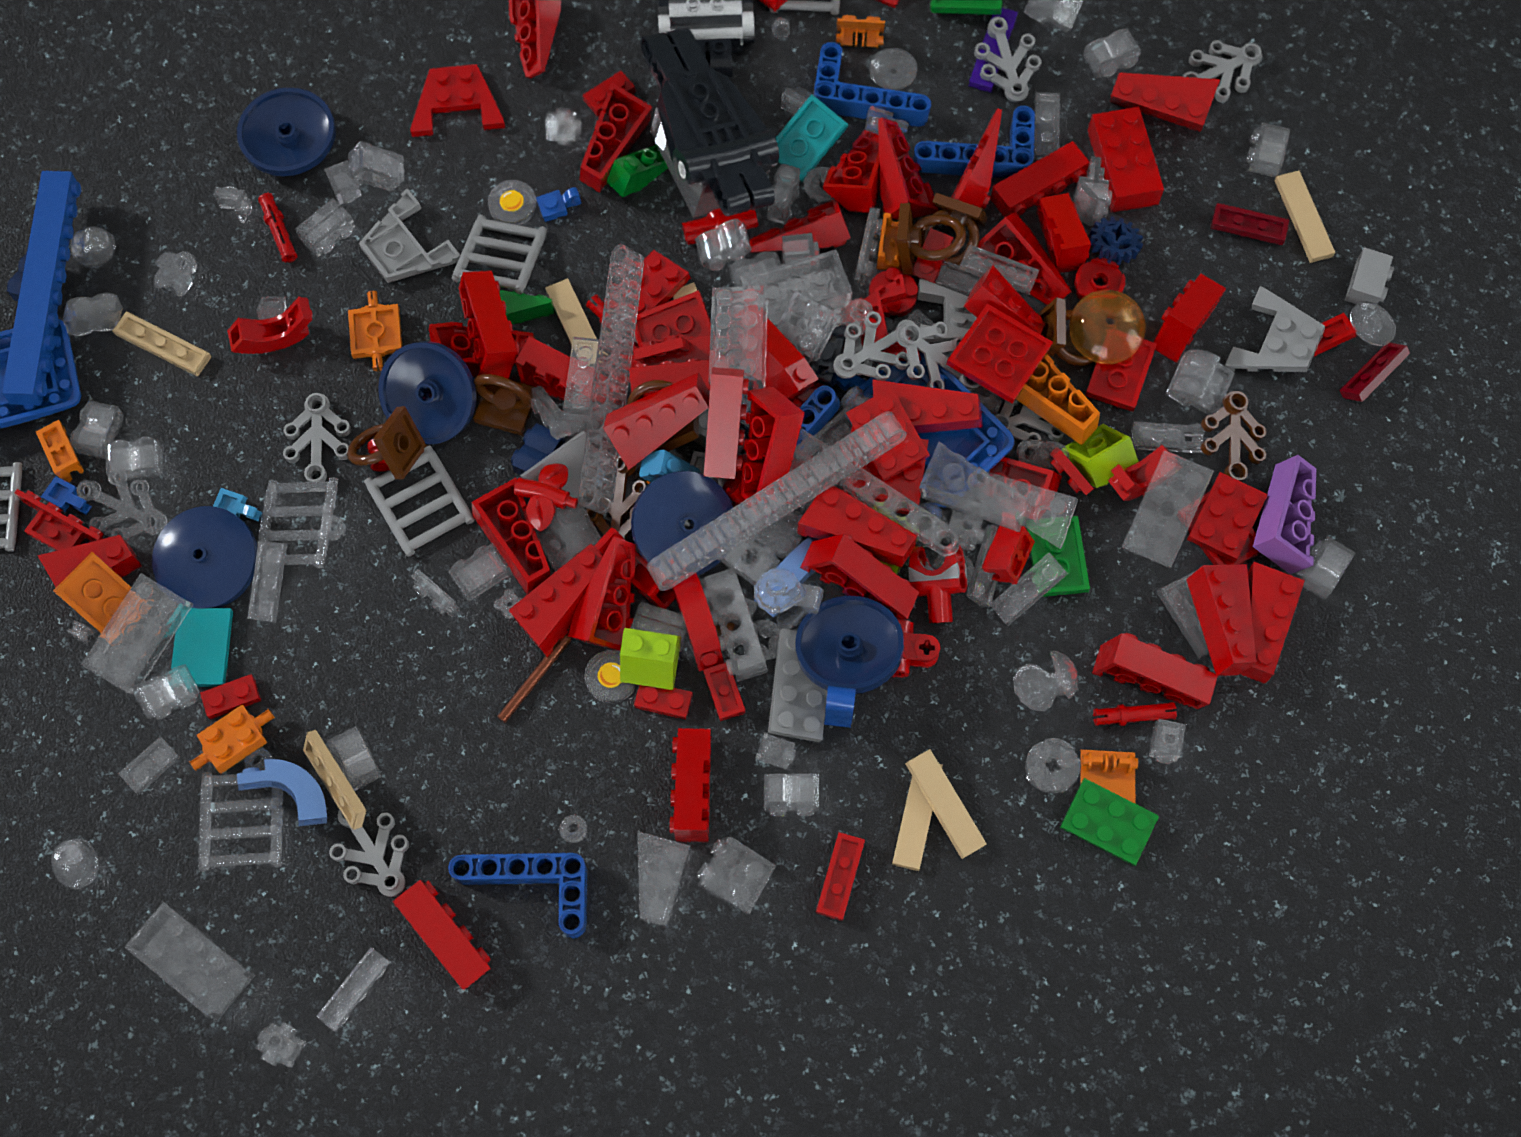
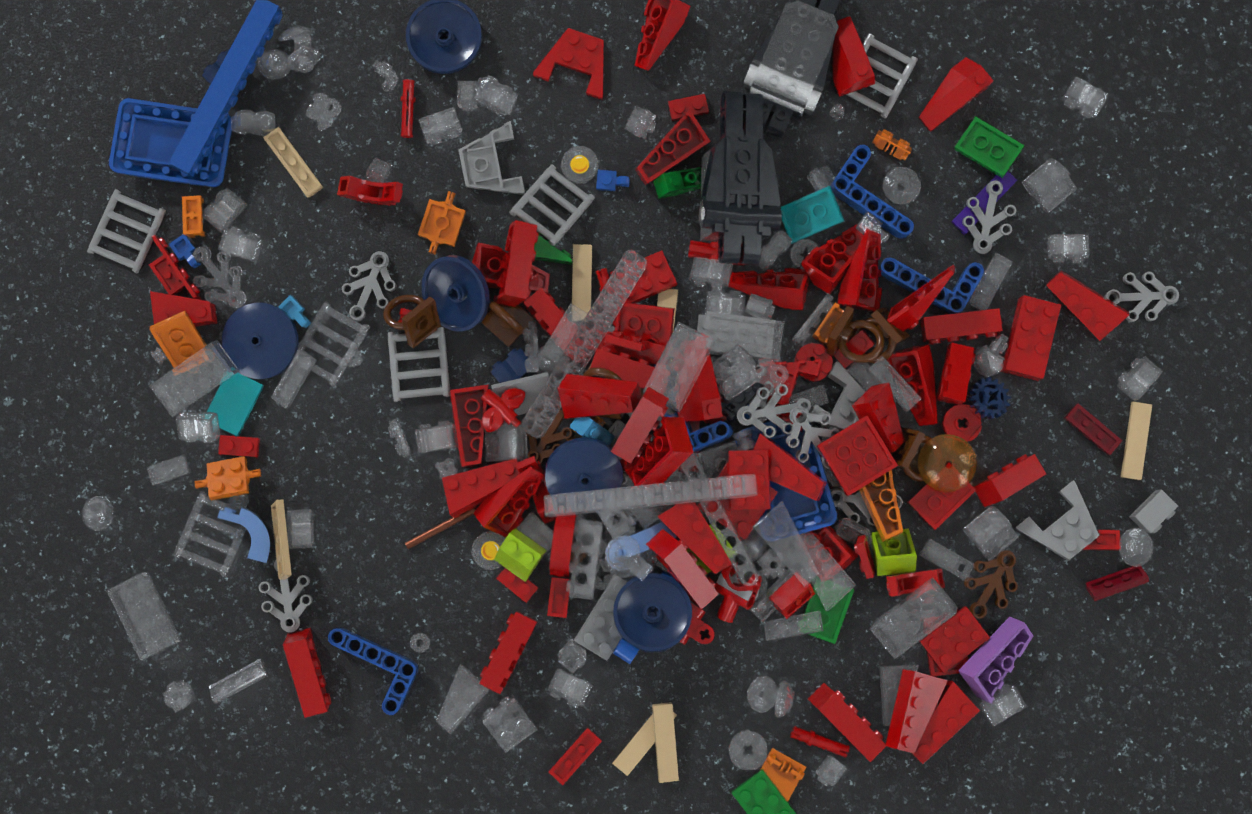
camera: 25 degrees right, 15 degrees up
(121, 216) = (304, 57): none -> clear animal

